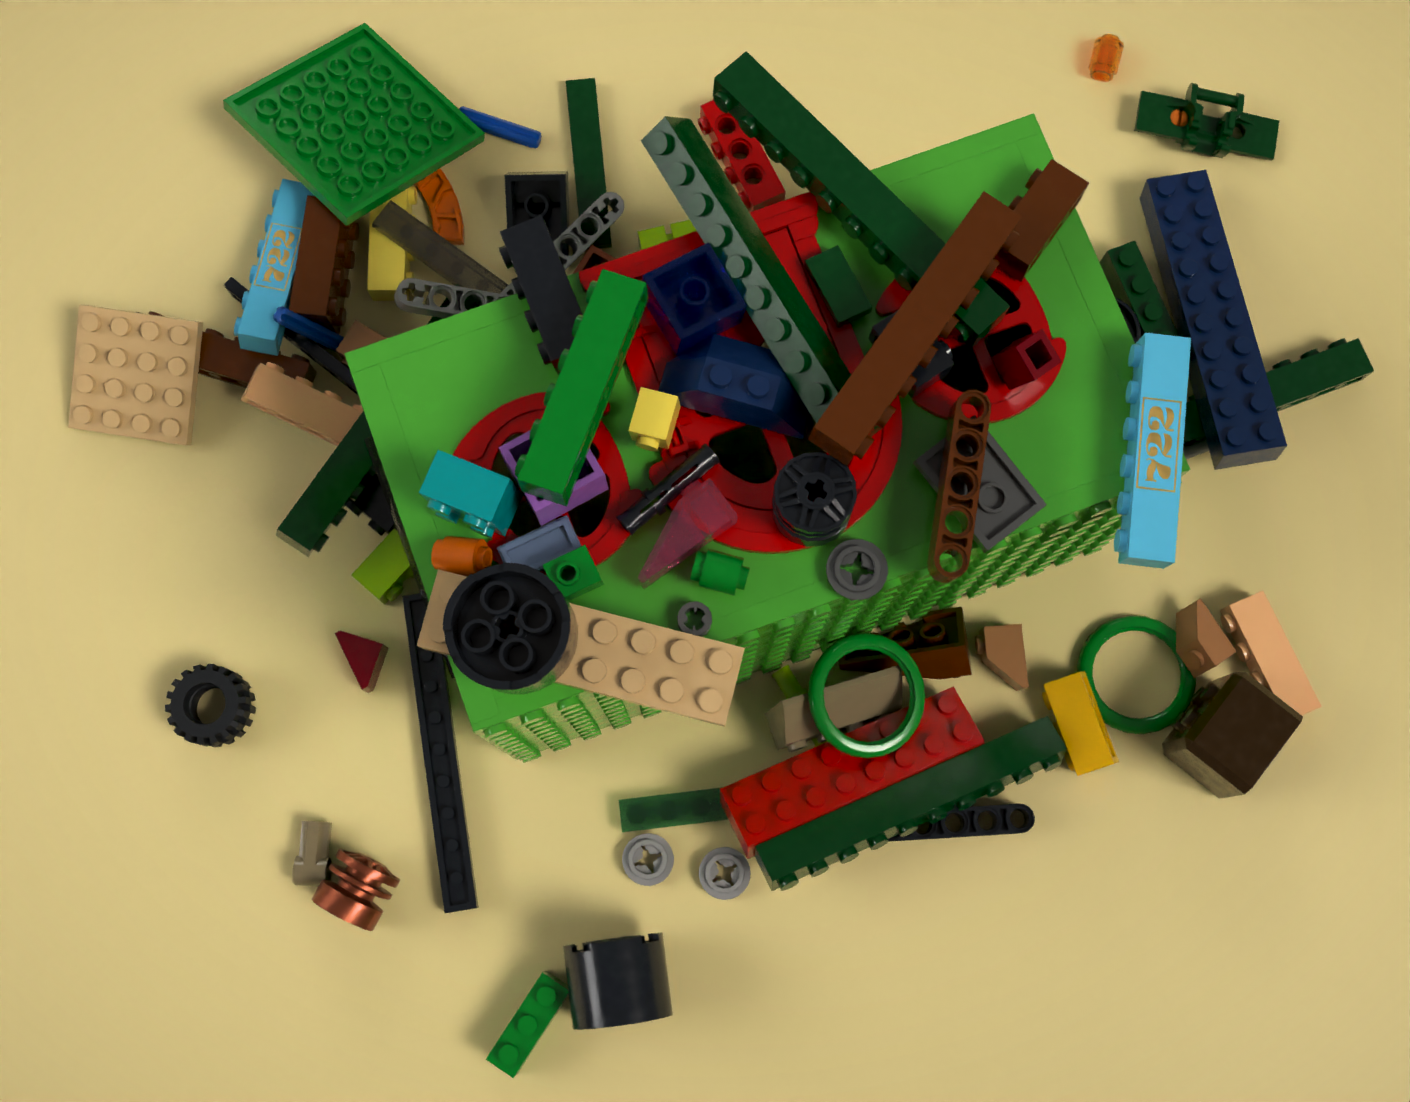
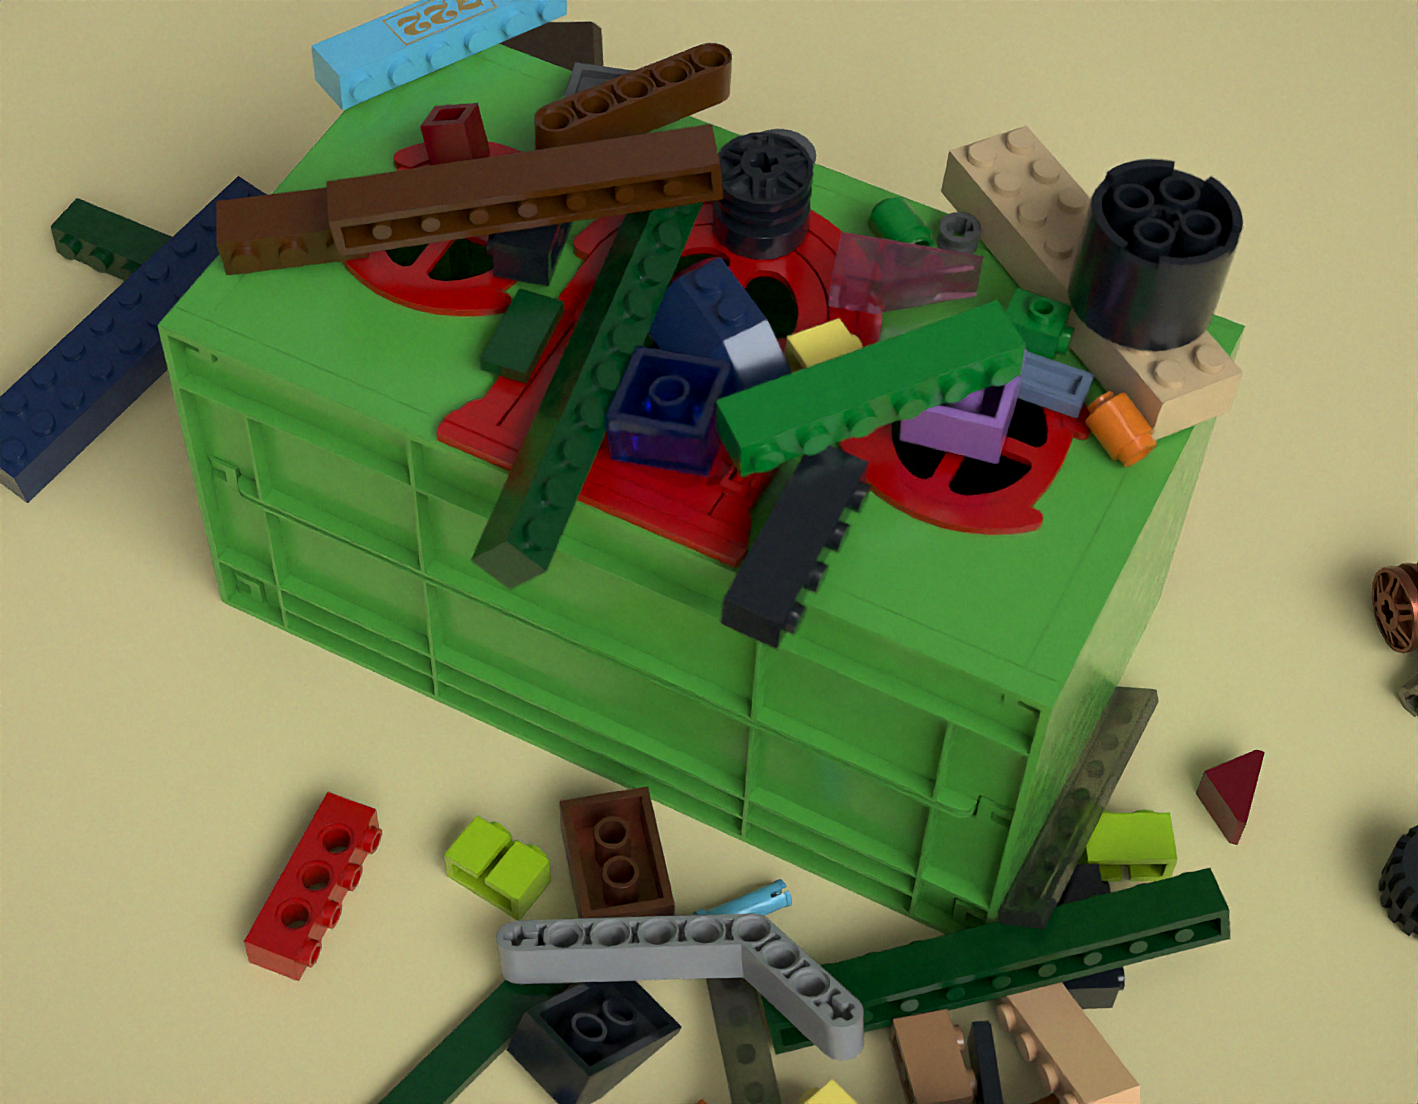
camera: 135 degrees left, 25 degrees down
(441, 766) = (1228, 659): black plate -> none
(470, 493) = (1065, 435): teal brick -> none
(529, 1024) = (1348, 401): green brick -> none
(617, 981) = (1276, 336): black brick -> none
(632, 519) = (865, 316): black pin -> none
(844, 186) = (407, 416): dark green brick -> none
(1135, 287) = (144, 435): dark green brick -> none

